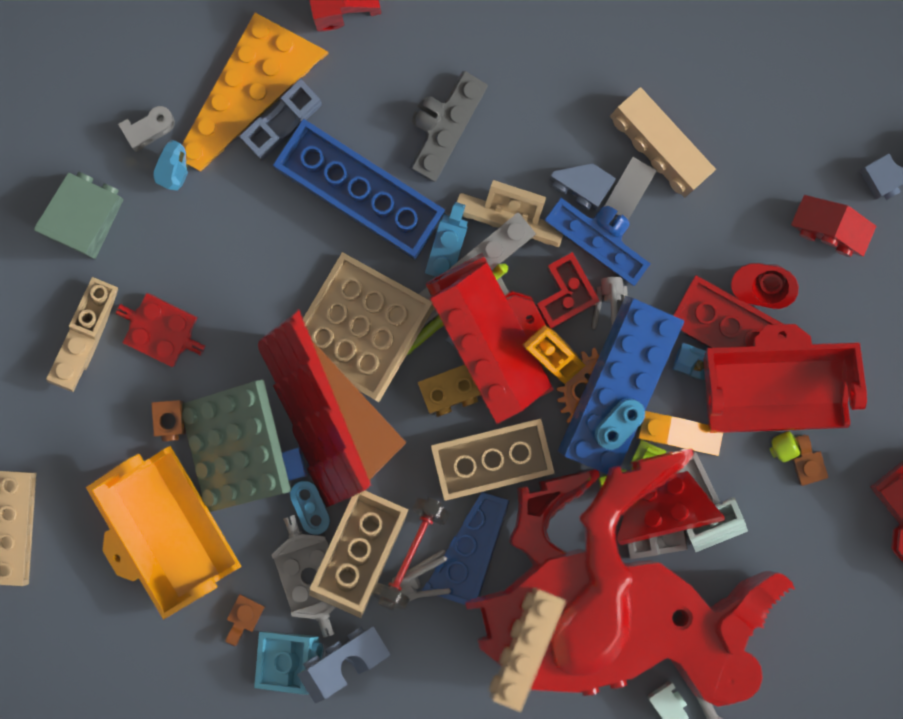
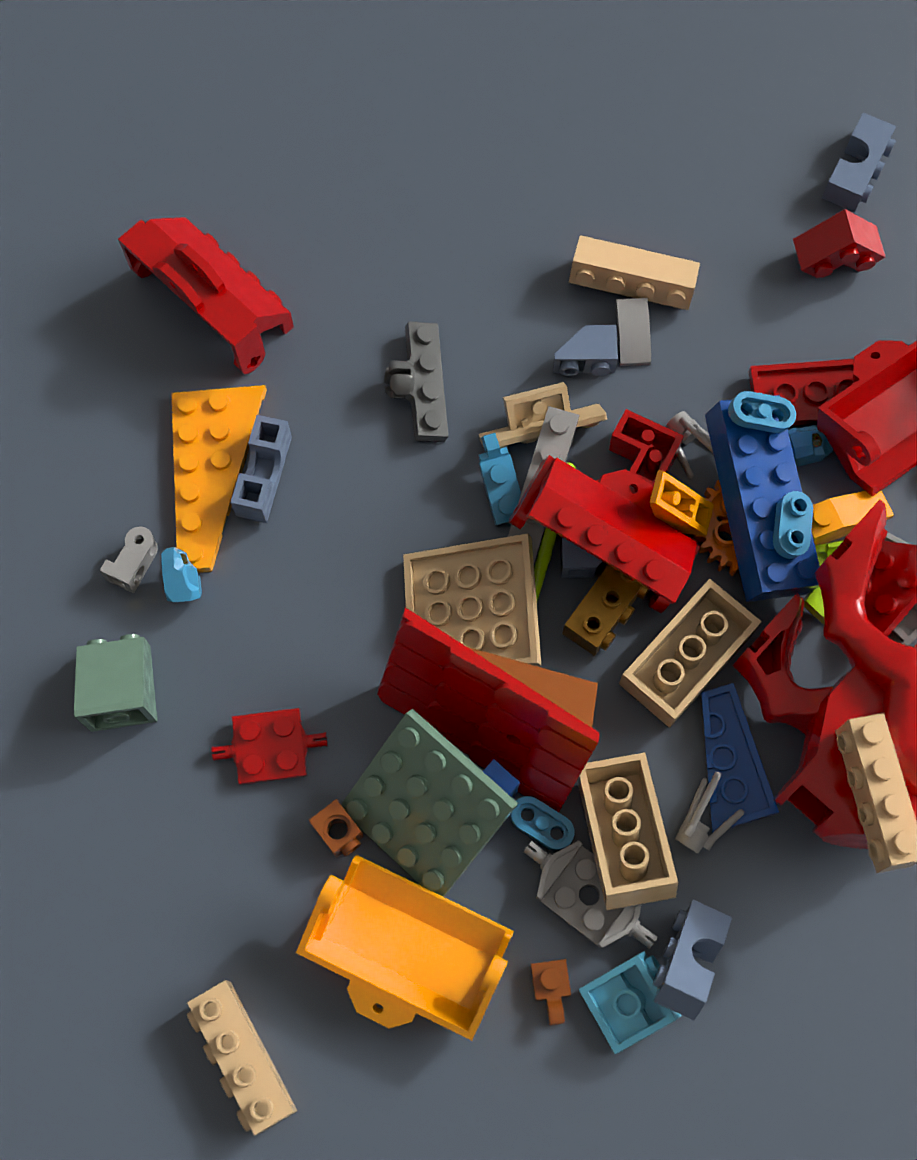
camera: 35 degrees left, 15 degrees down
(83, 335) = (192, 801): tan slope -> none
(359, 189) = (380, 484): blue brick -> none
(430, 512) = (689, 851): clear smoke axle -> none
(599, 238) = (638, 389): blue plate -> none
(654, 328) = (760, 411): none -> dark azure plate
(765, 285) = (821, 333): red piece -> none

